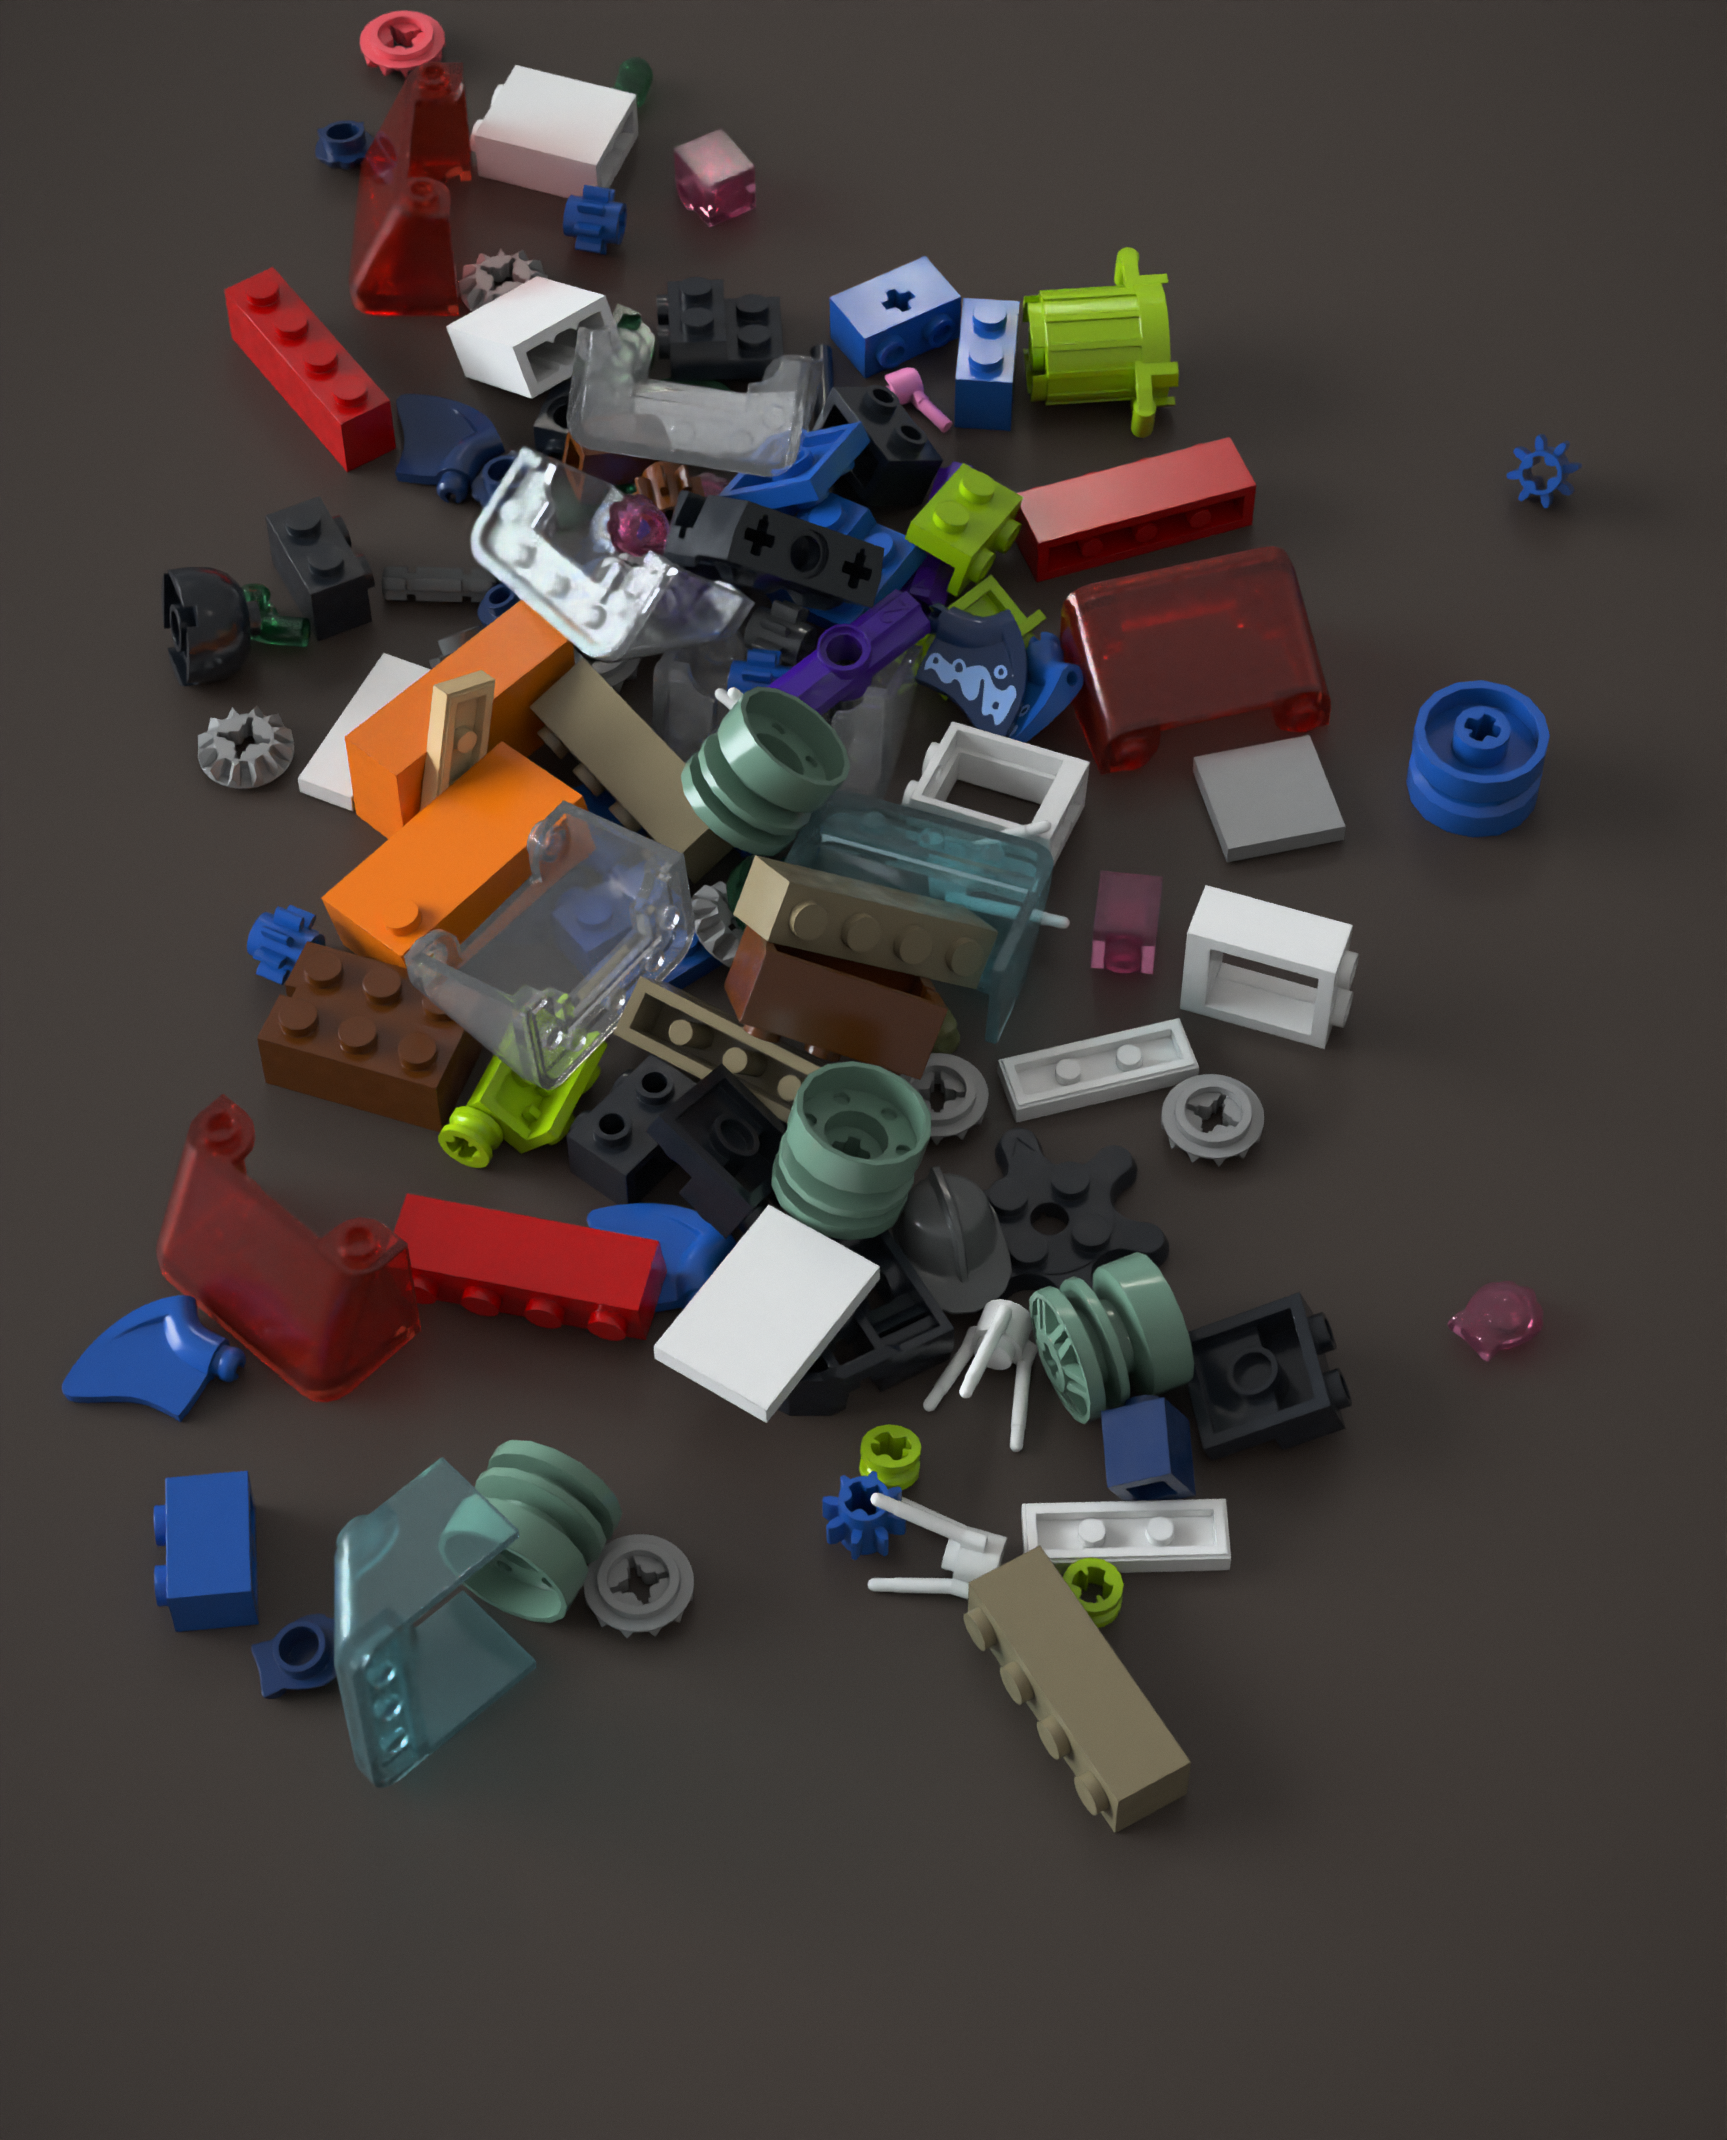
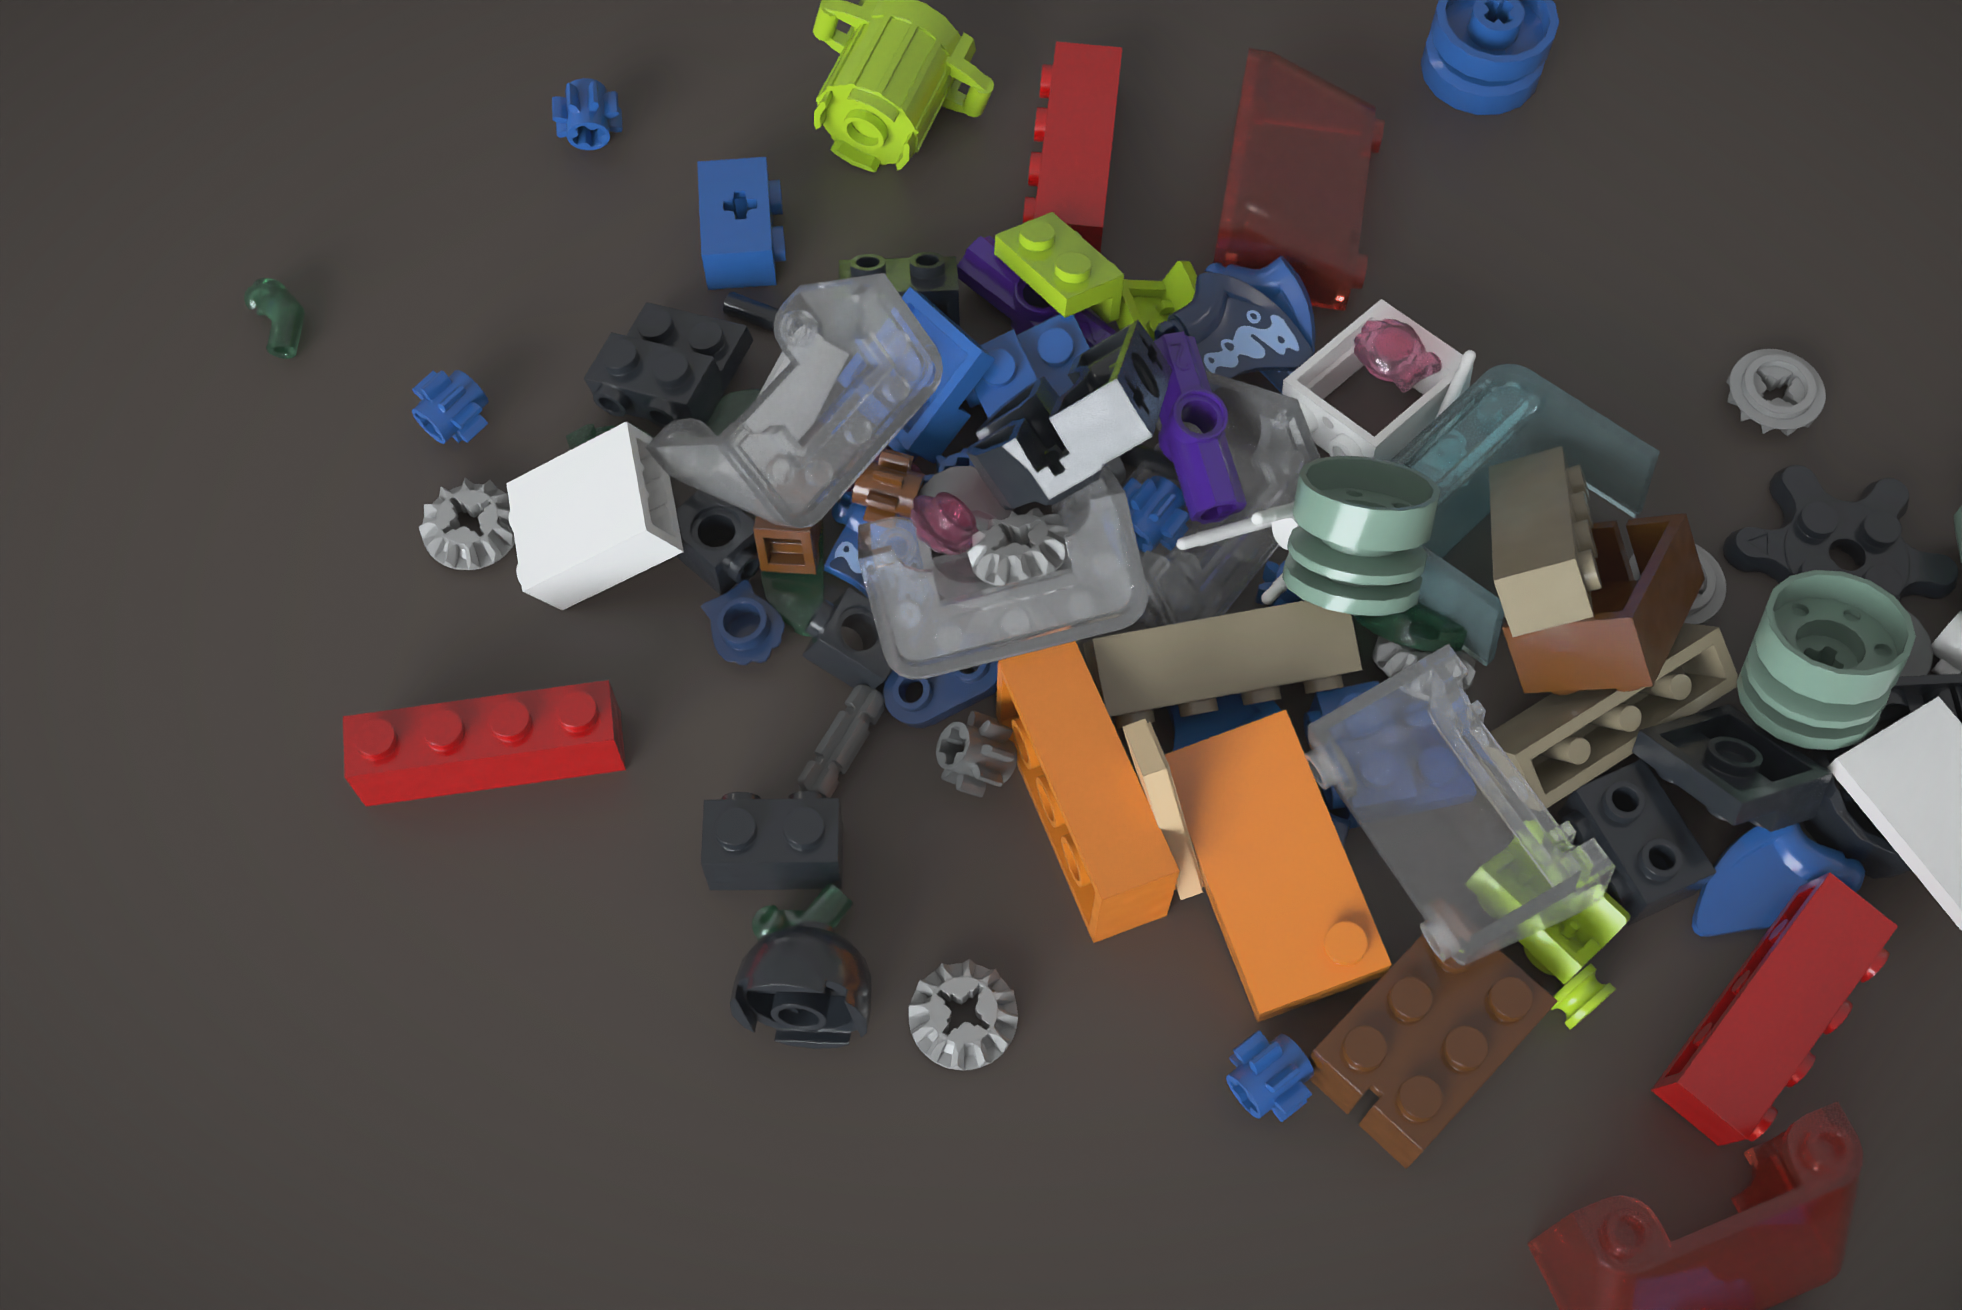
camera: 65 degrees left, 10 degrees up
(328, 770) = (1001, 887): white tile -> none
(343, 145) = (174, 587): dark blue animal -> none
(403, 209) = (360, 588): clear red windscreen -> none
(407, 28) = (48, 463): coral gear -> none
(444, 444) = (654, 661): dark blue arm -> none
(554, 133) = (304, 394): white brick -> none
(714, 178) = (462, 287): clear pink brick -> none
(909, 388) = (823, 252): bright pink hand -> none
(941, 176) = (587, 114): none -> blue gear
(986, 364) = (844, 178): blue brick -> none
(1017, 776) = (1395, 353): none -> clear pink animal
(1097, 1070) = (1687, 439): white tile -> none
(1126, 922) = (1564, 350): clear pink brick -> none
(1268, 798) = (1440, 204): light grey tile -> none
(1276, 938) = (1667, 273): white window -> none

